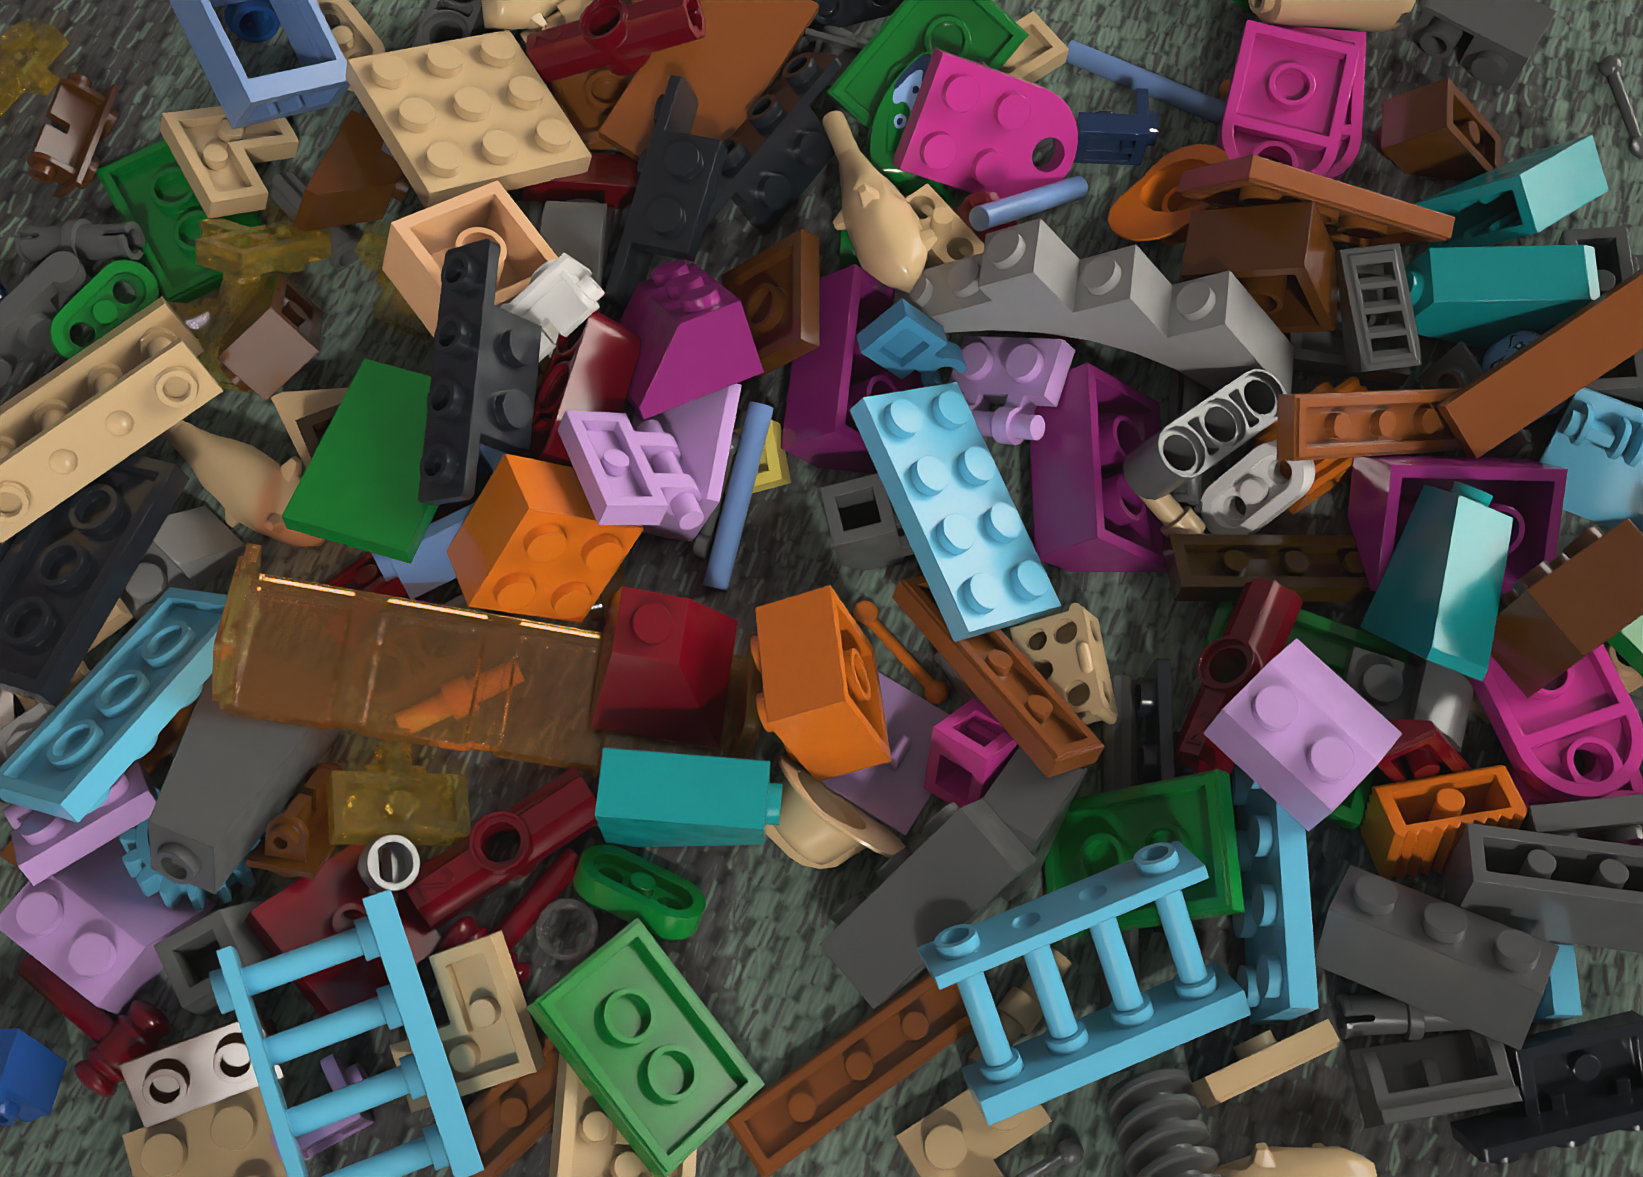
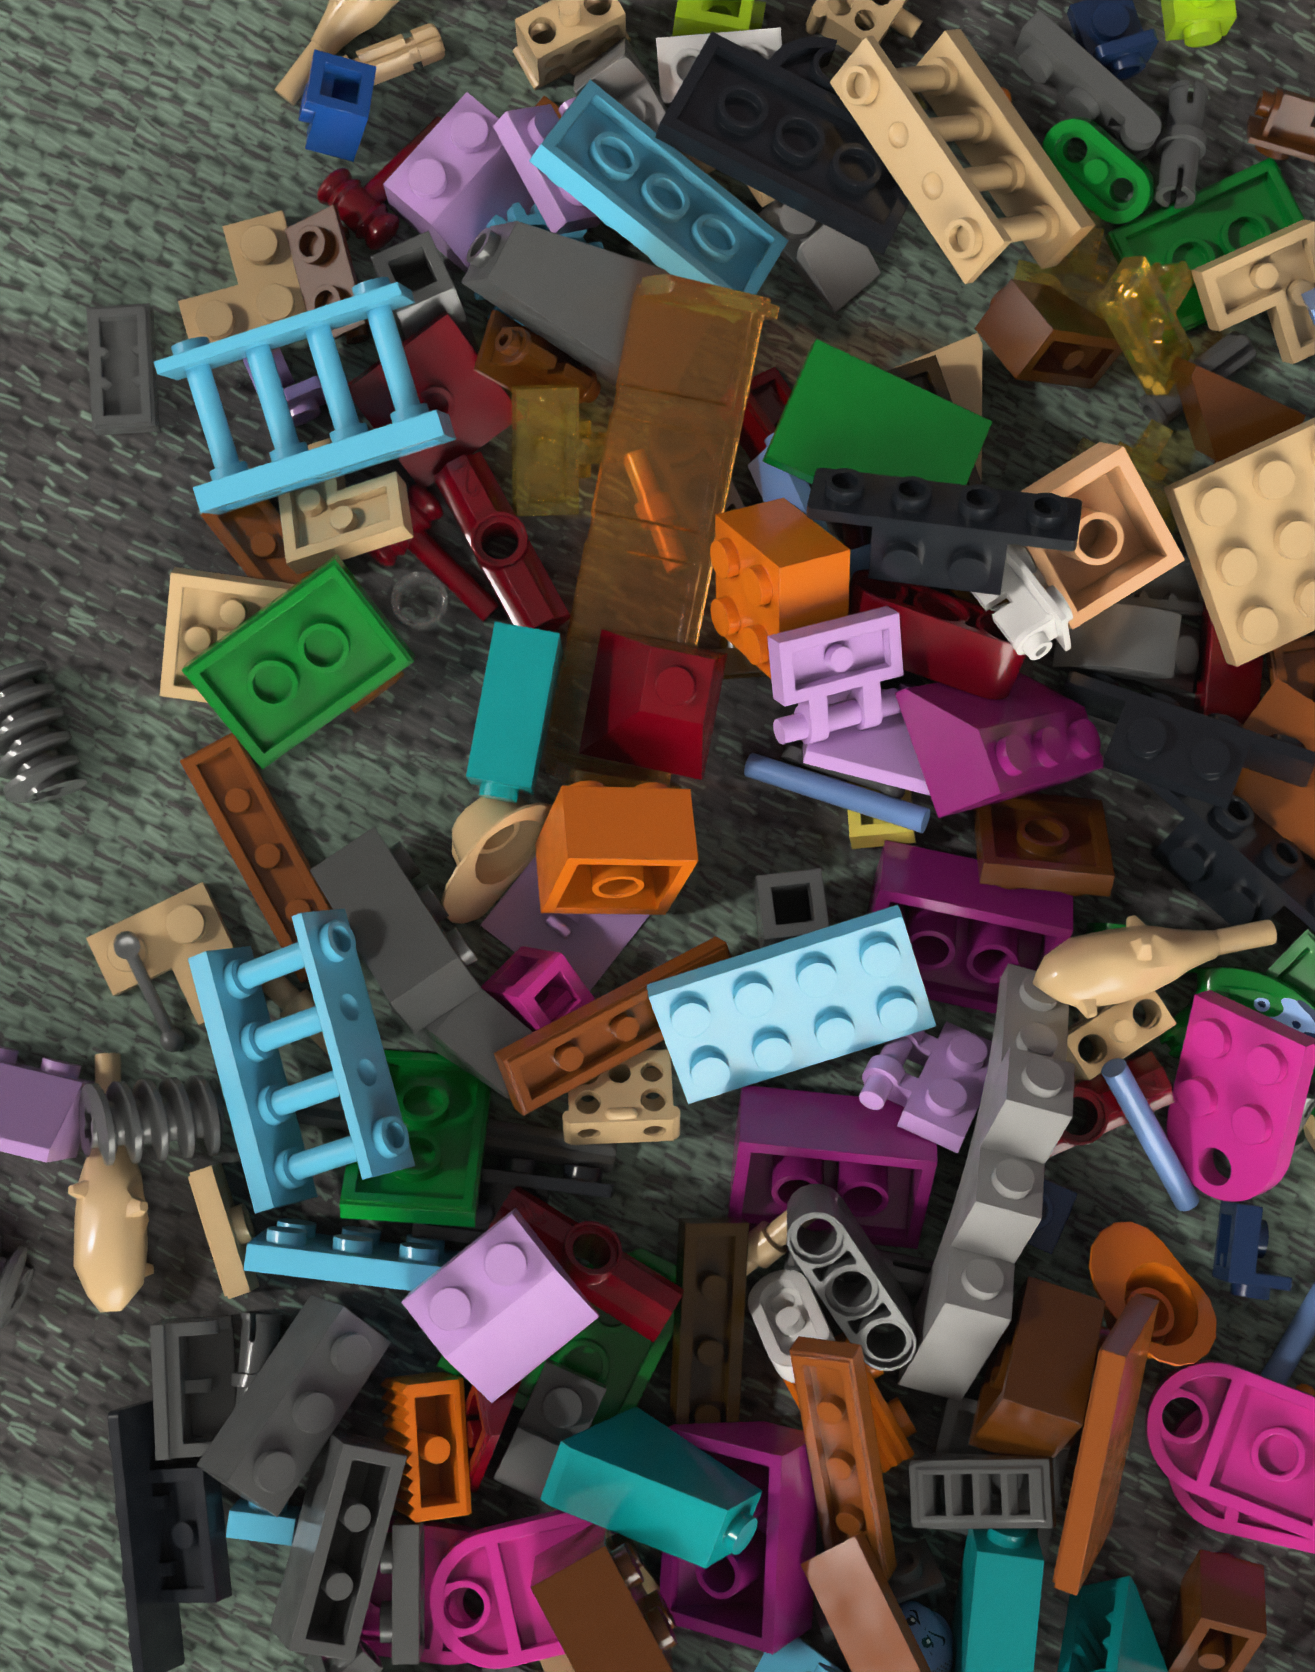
camera: 90 degrees right, 15 degrees up
(243, 480) = (898, 308): tan piece -> none
(399, 863) = (491, 448): light grey hinge -> none
(637, 888) = (445, 668): green plate -> none
(866, 614) = (622, 971): orange hinge -> none
(910, 341) = (982, 978): dark azure plate -> none

